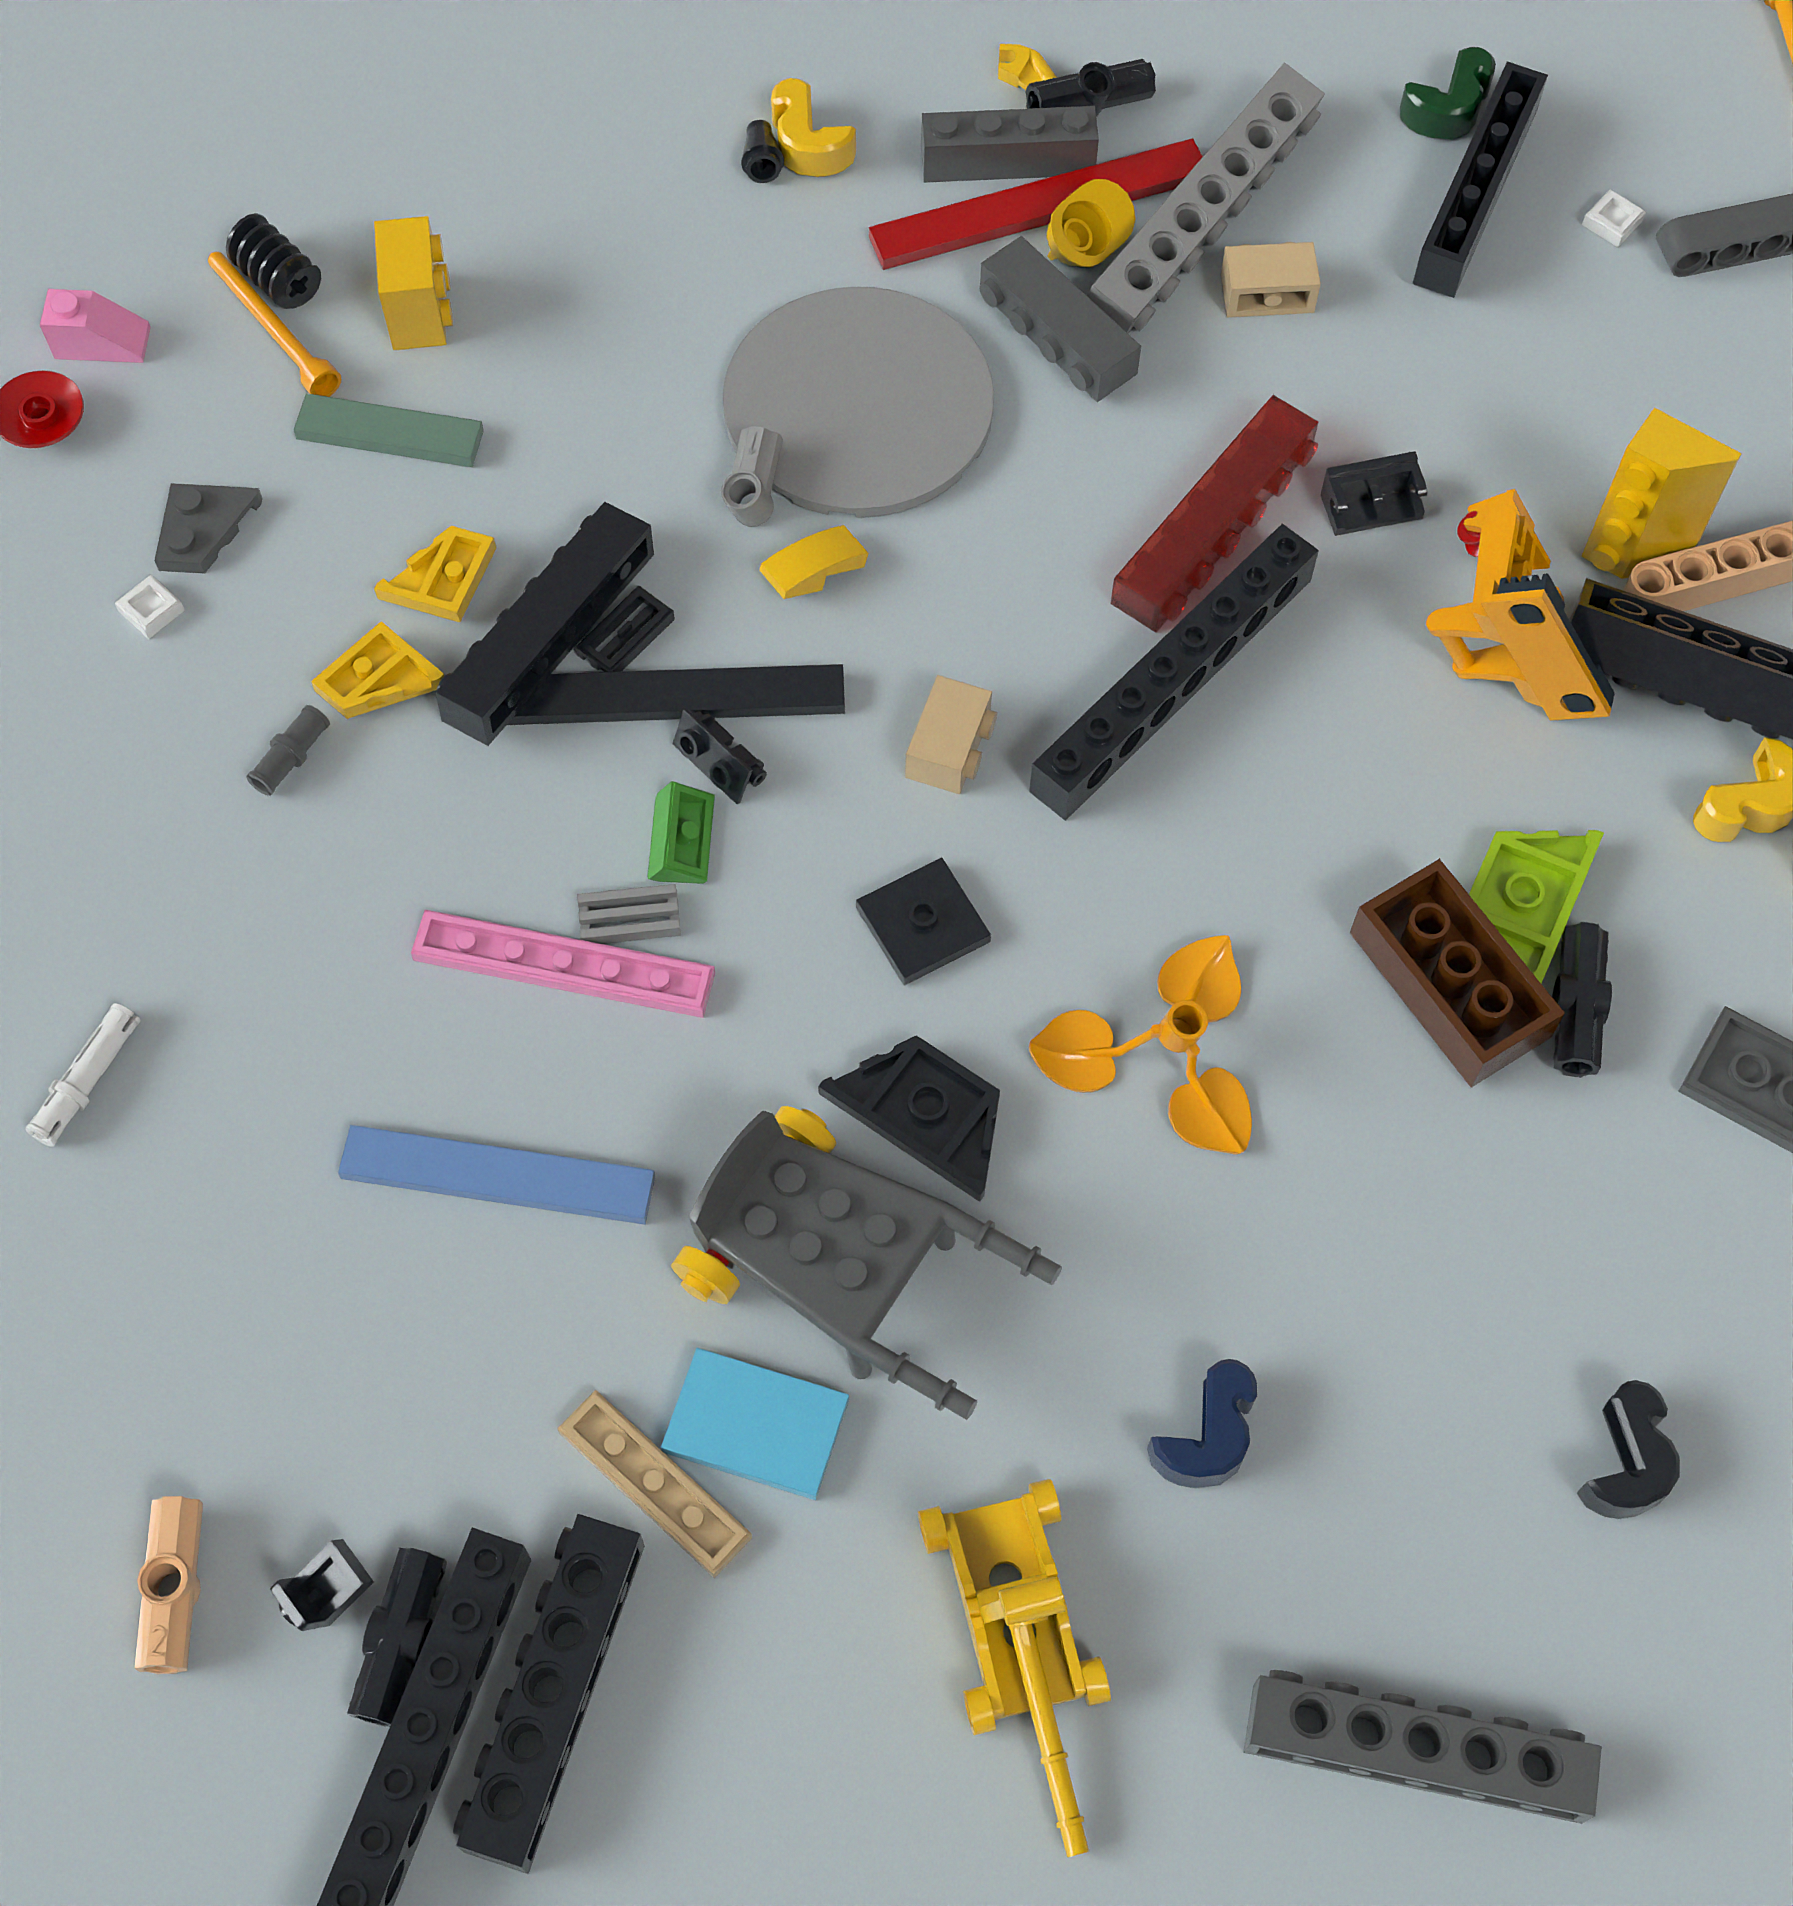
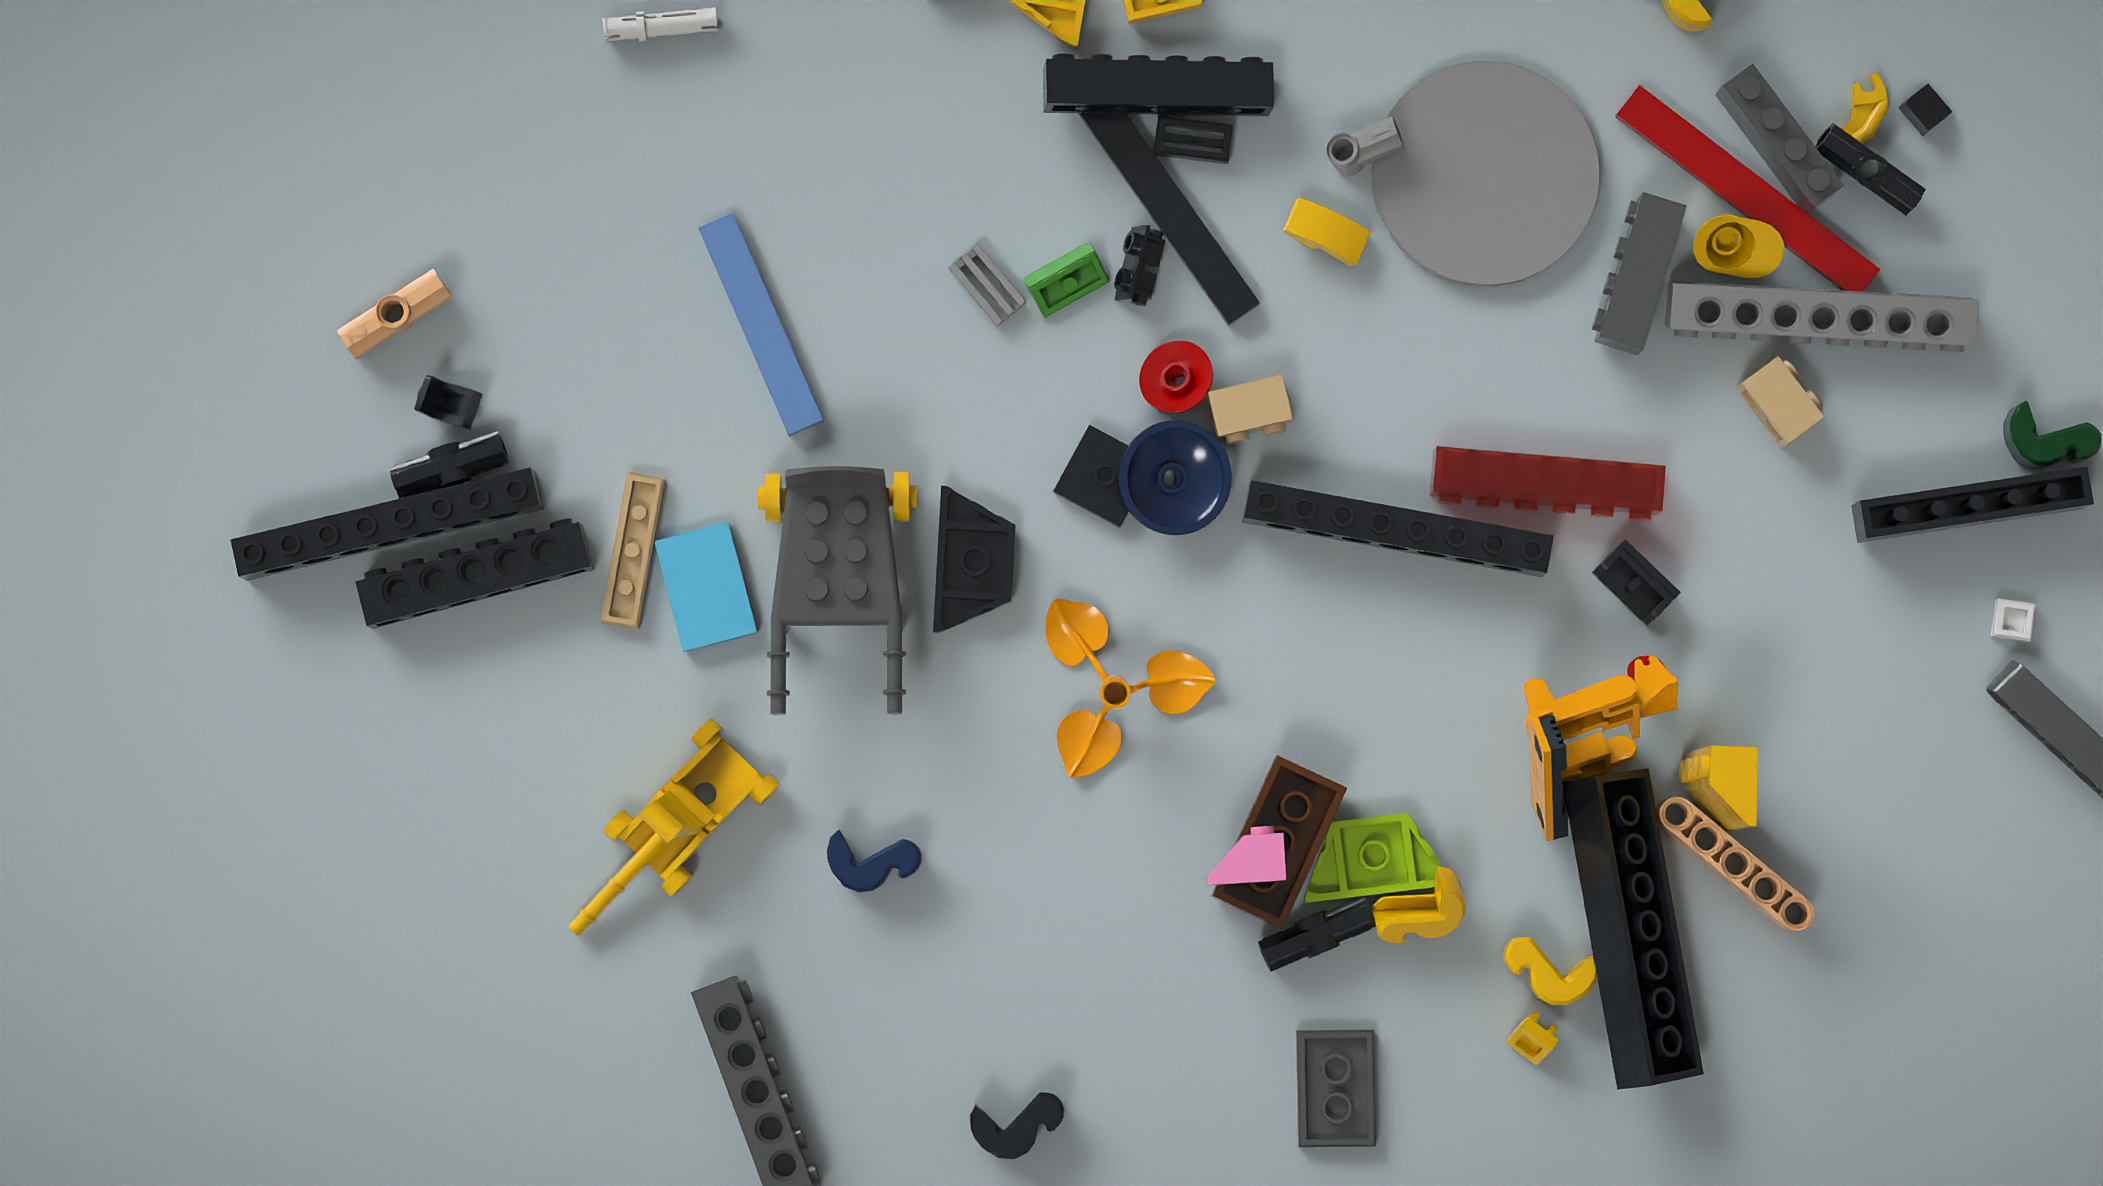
camera: 55 degrees right, 20 degrees up
(563, 963) = (927, 266): bright pink tile -> none
(853, 769) = (1166, 365): none -> red dish
(979, 821) = (1199, 470): none -> dark blue dish
(1064, 32) = (1925, 109): none -> black slope
(1470, 989) = (1252, 859): none -> bright pink slope
(1625, 873) = (1422, 914): none -> yellow animal

